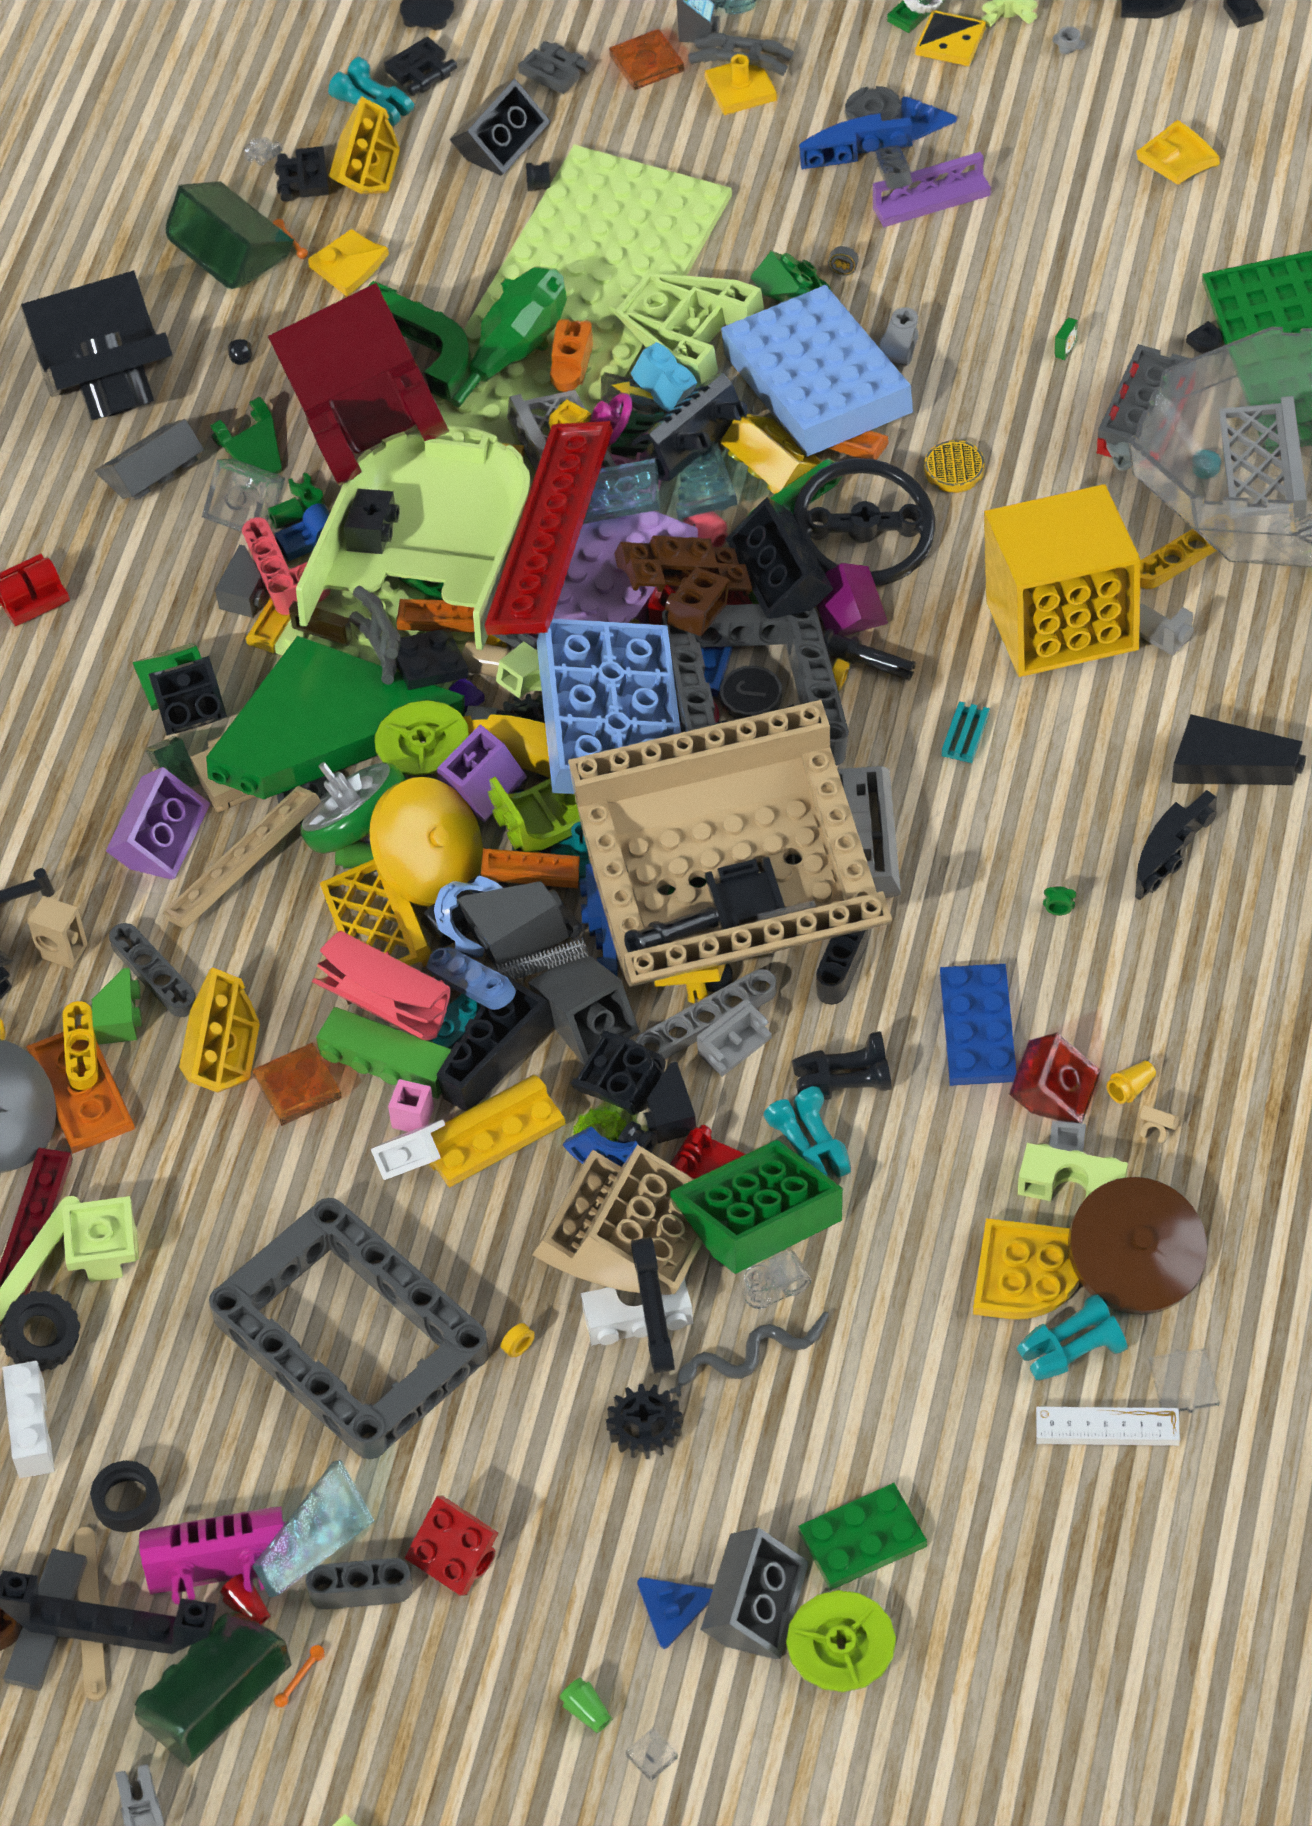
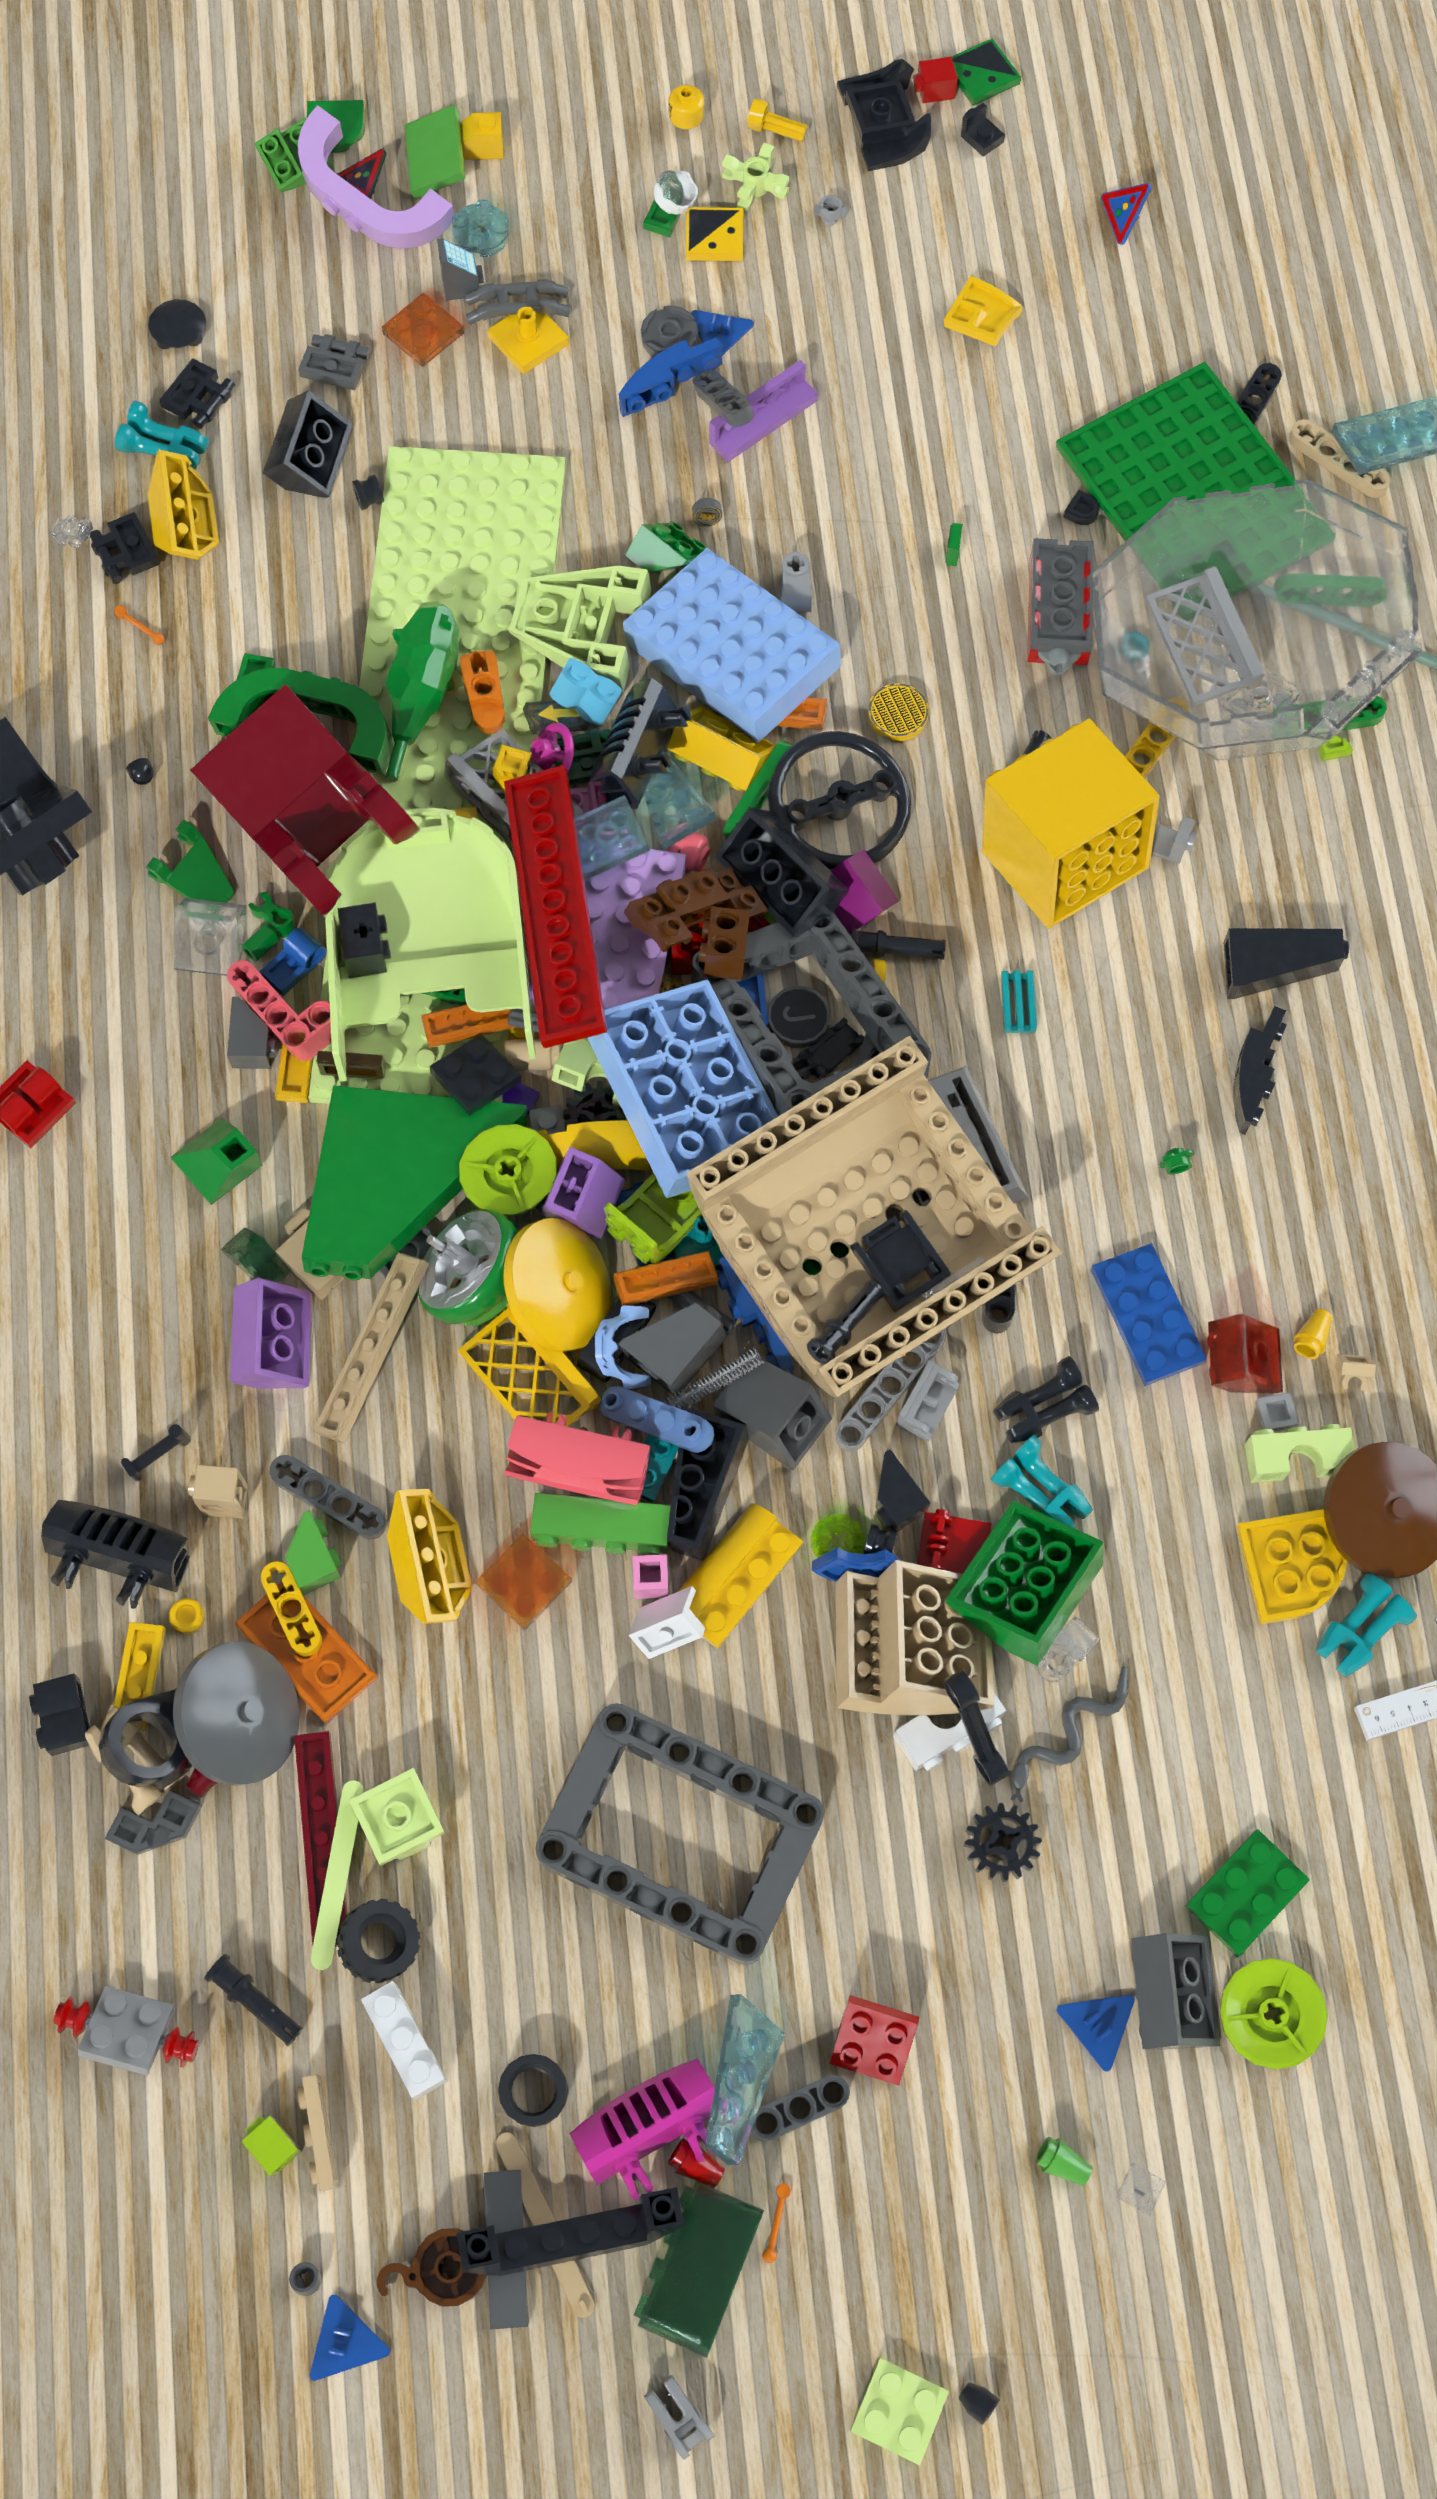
camera: 25 degrees left, 15 degrees up
(151, 460) = (97, 920): dark grey slope -> none
(187, 696) = (249, 1186): black slope -> none
(224, 233) = (73, 640): clear green windscreen -> none
(348, 261) = (211, 636): yellow plate -> none
(378, 631) = (435, 1076): dark grey piece -> none
(517, 1340) = (849, 1795): yellow tile -> none
(621, 1073) = (836, 1474): black slope -> none

